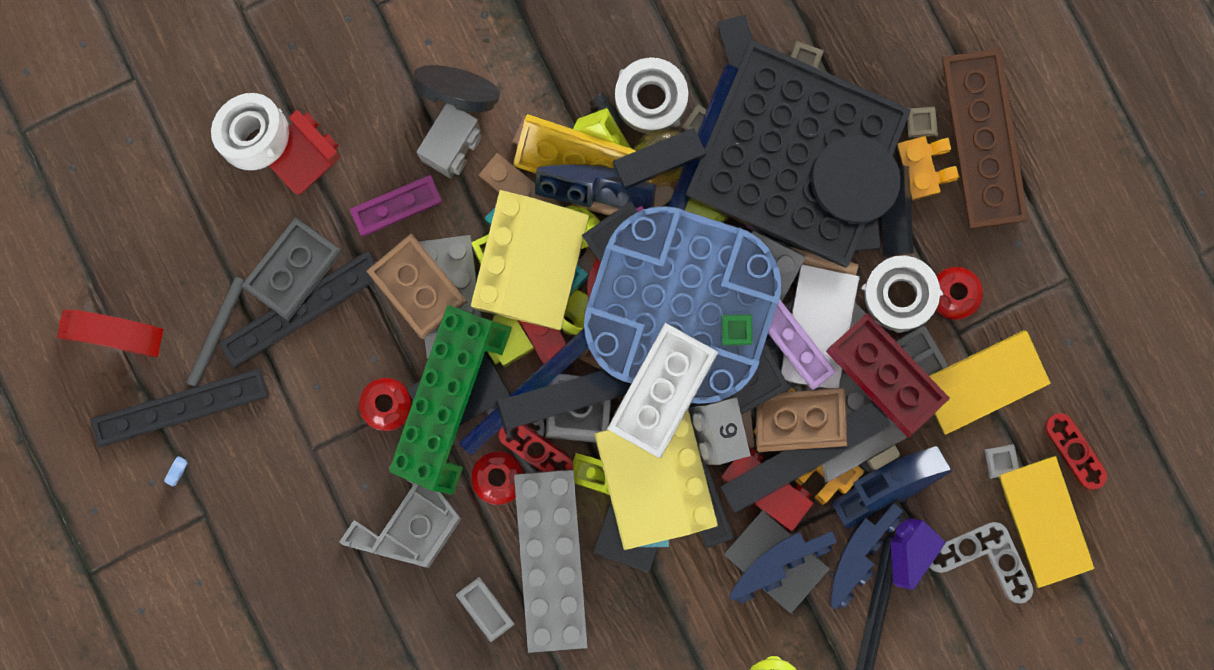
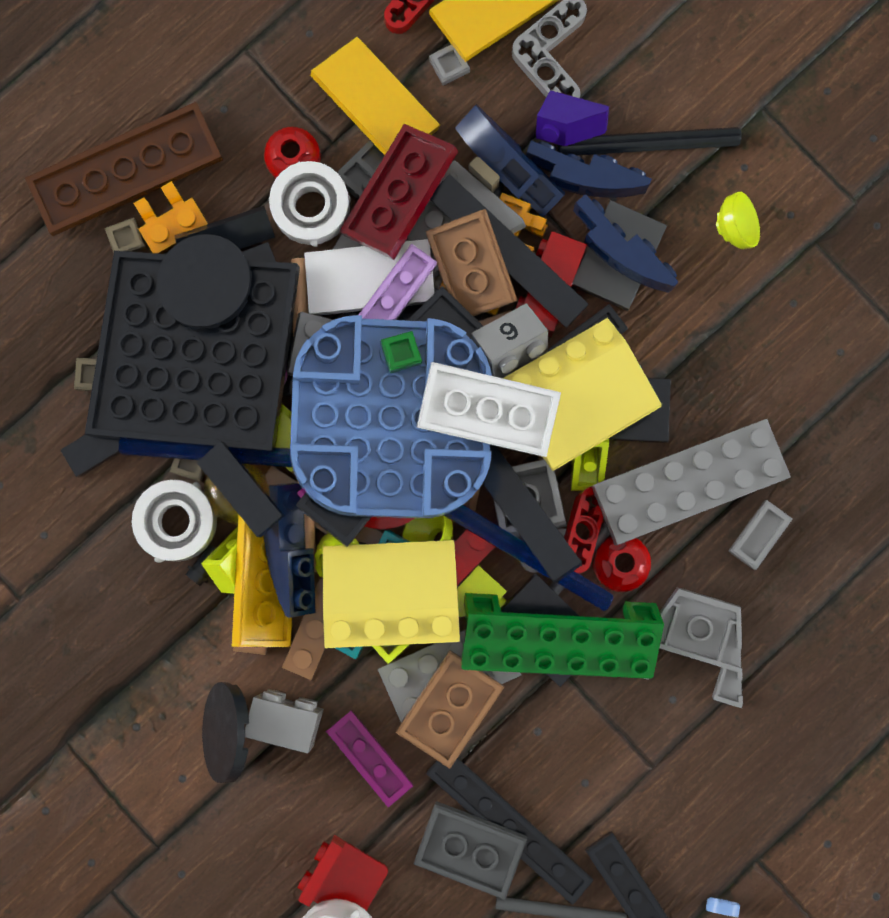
camera: 110 degrees left, 0 degrees up
(396, 415) = (564, 701): red piece -> none

